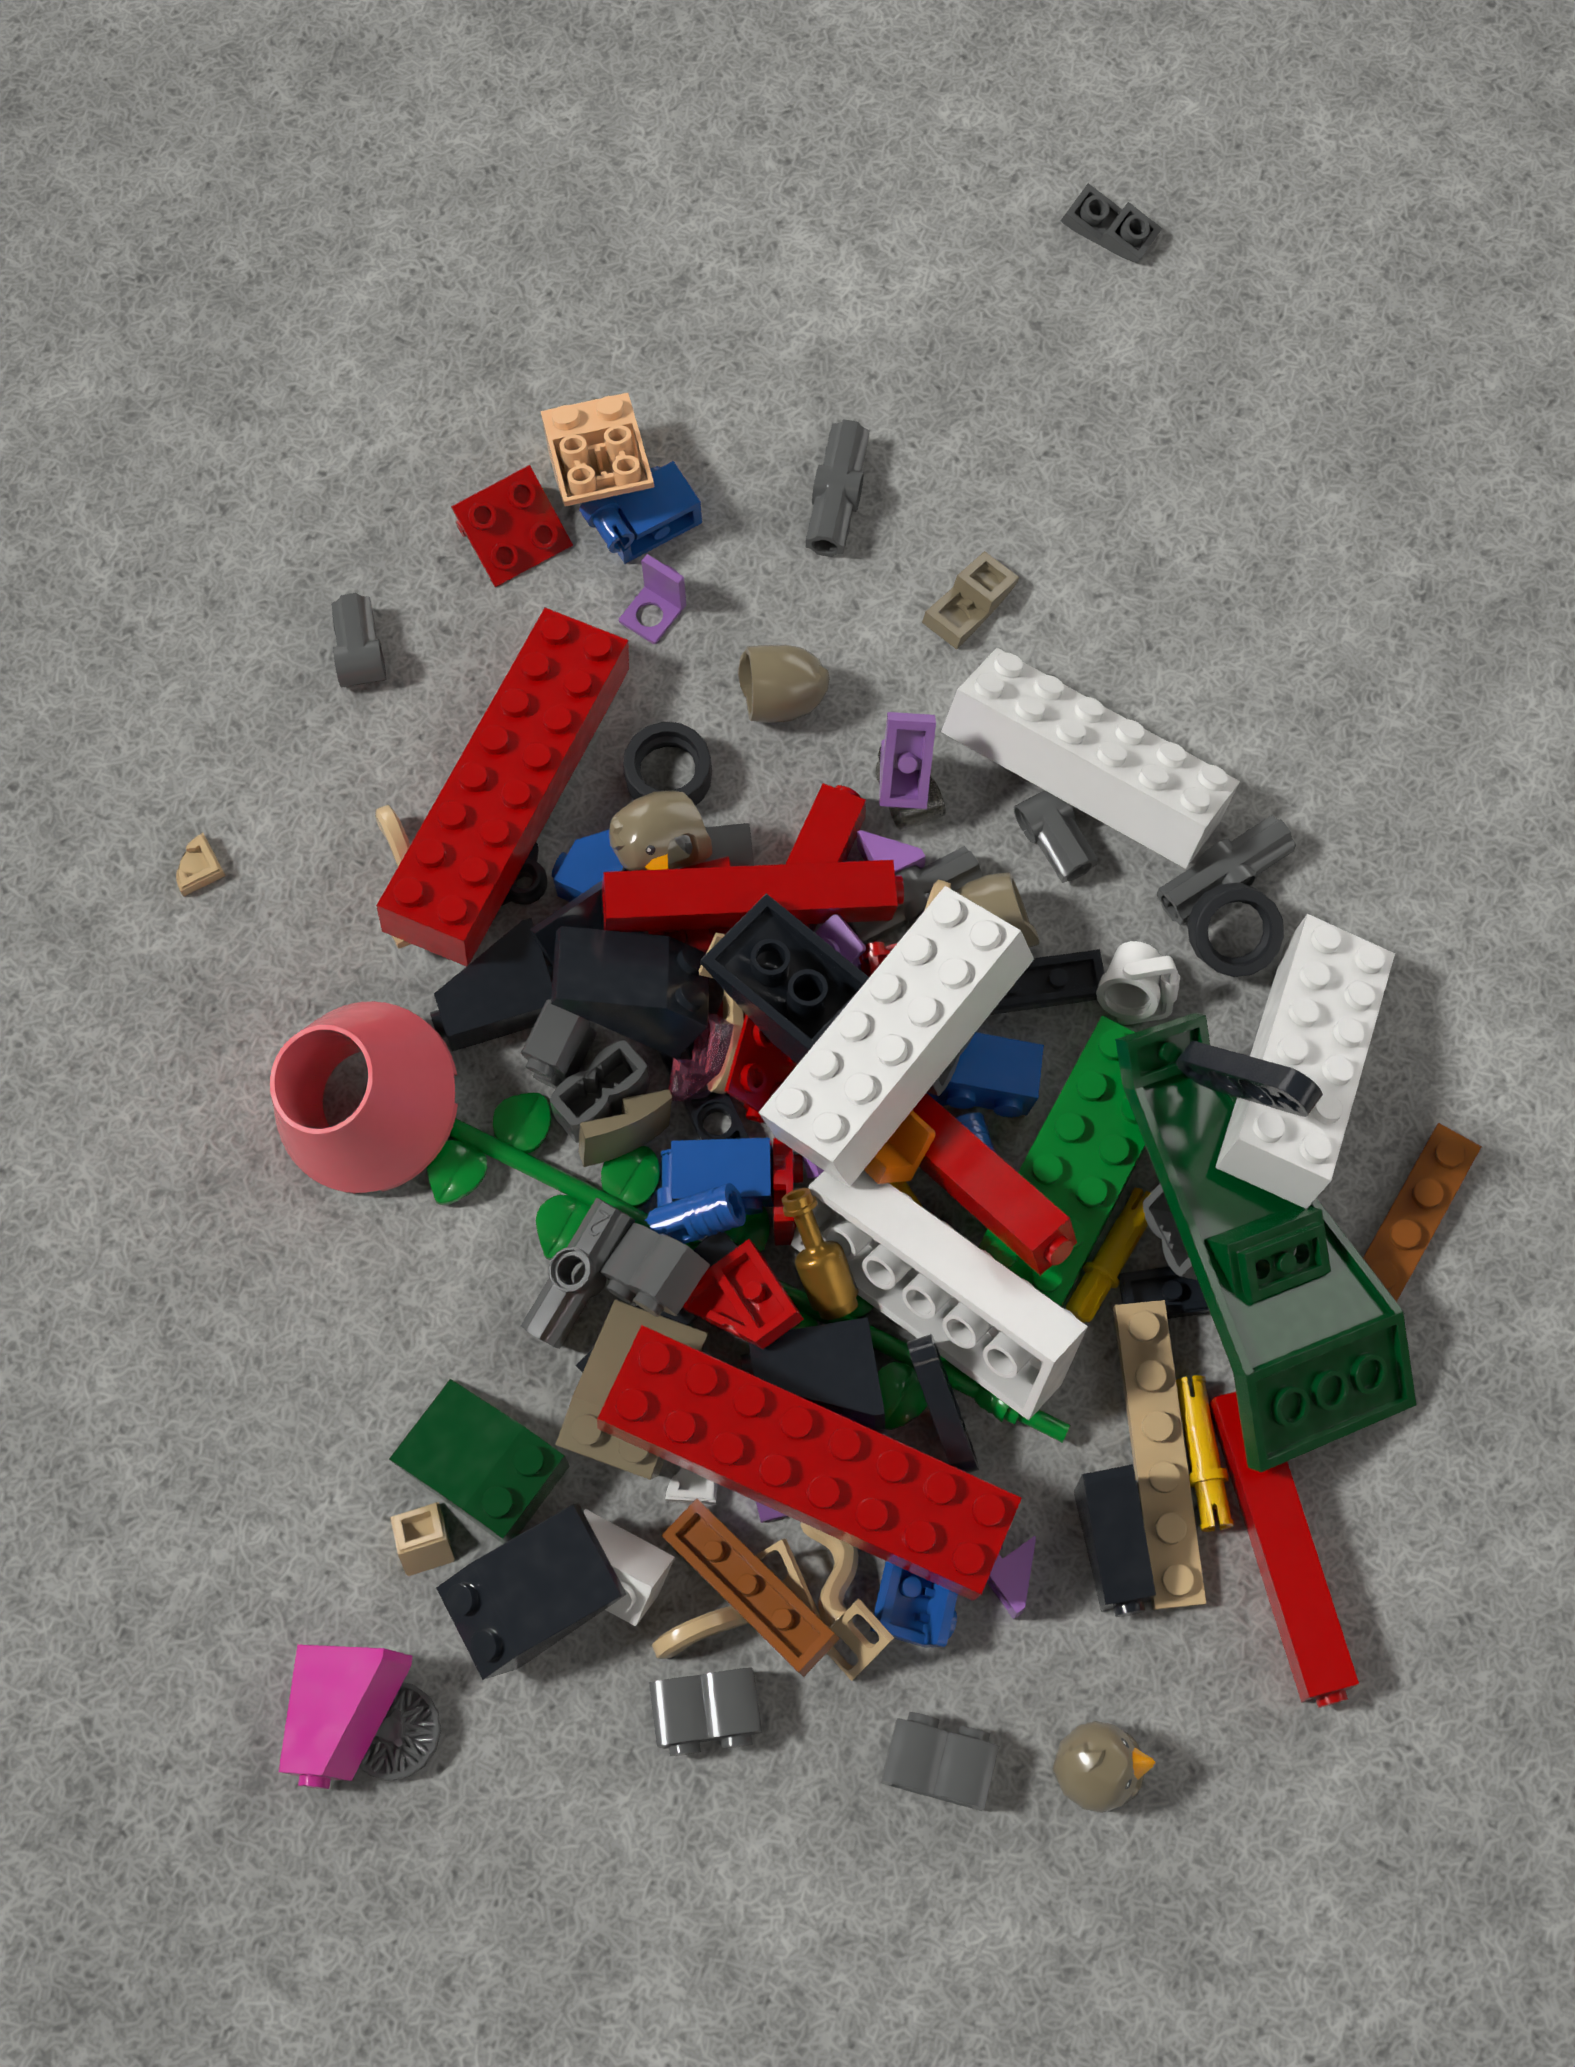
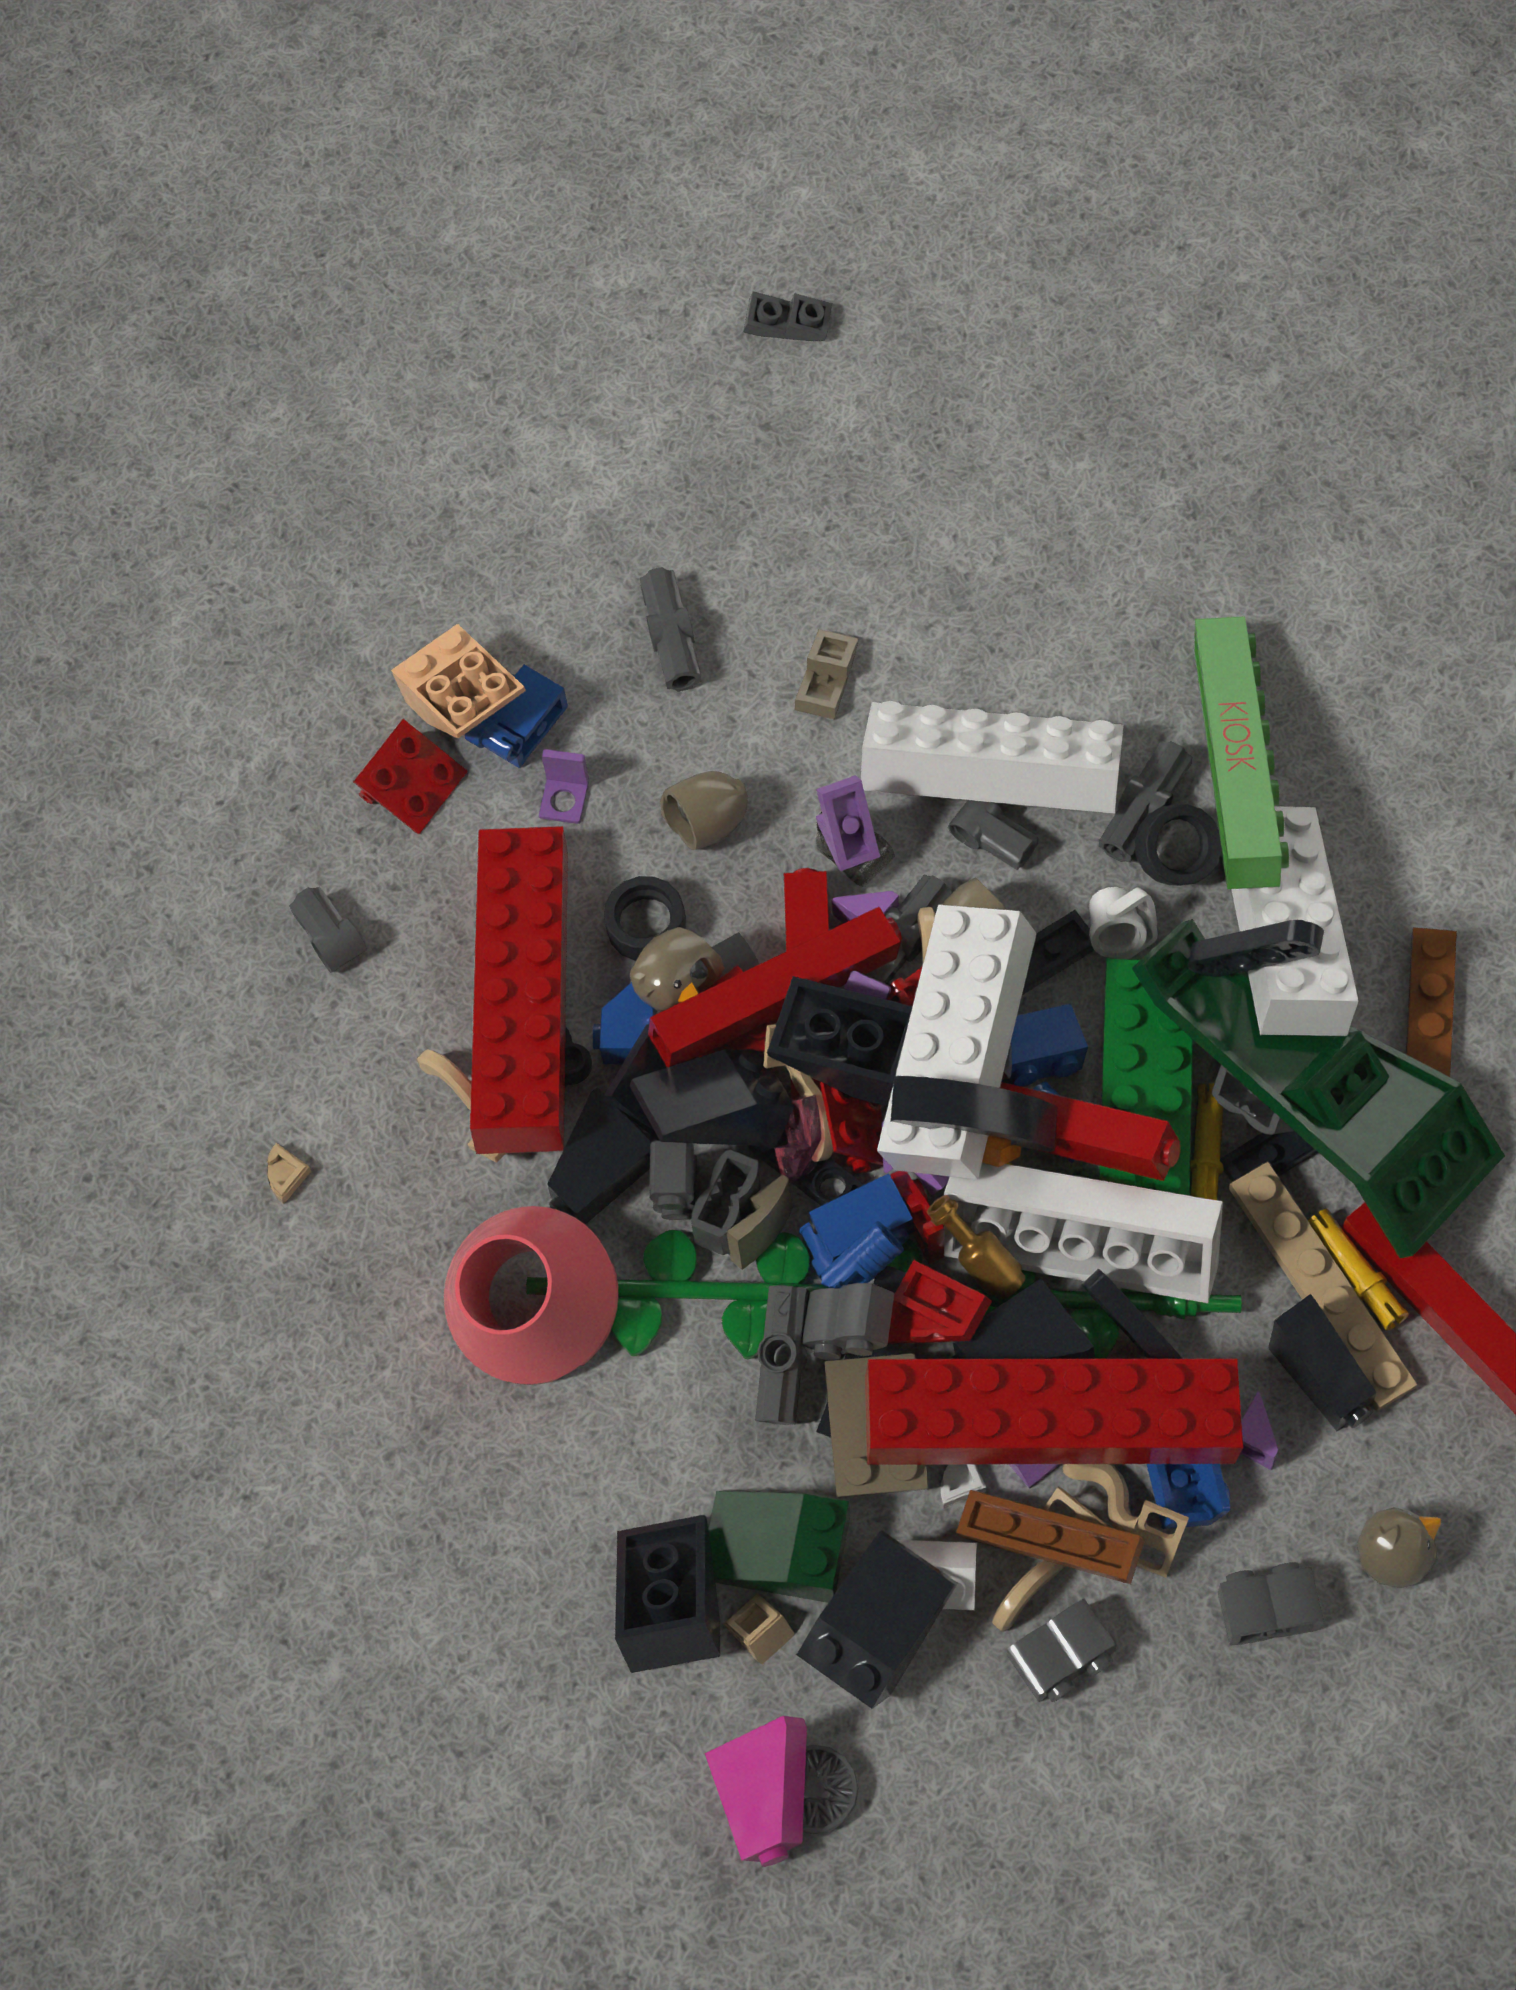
camera: 20 degrees left, 5 degrees down
(344, 1463) = (666, 1595): none -> black slope
(873, 1118) = (974, 1109): none -> black slope
(1339, 865) = (1238, 754): none -> bright green brick

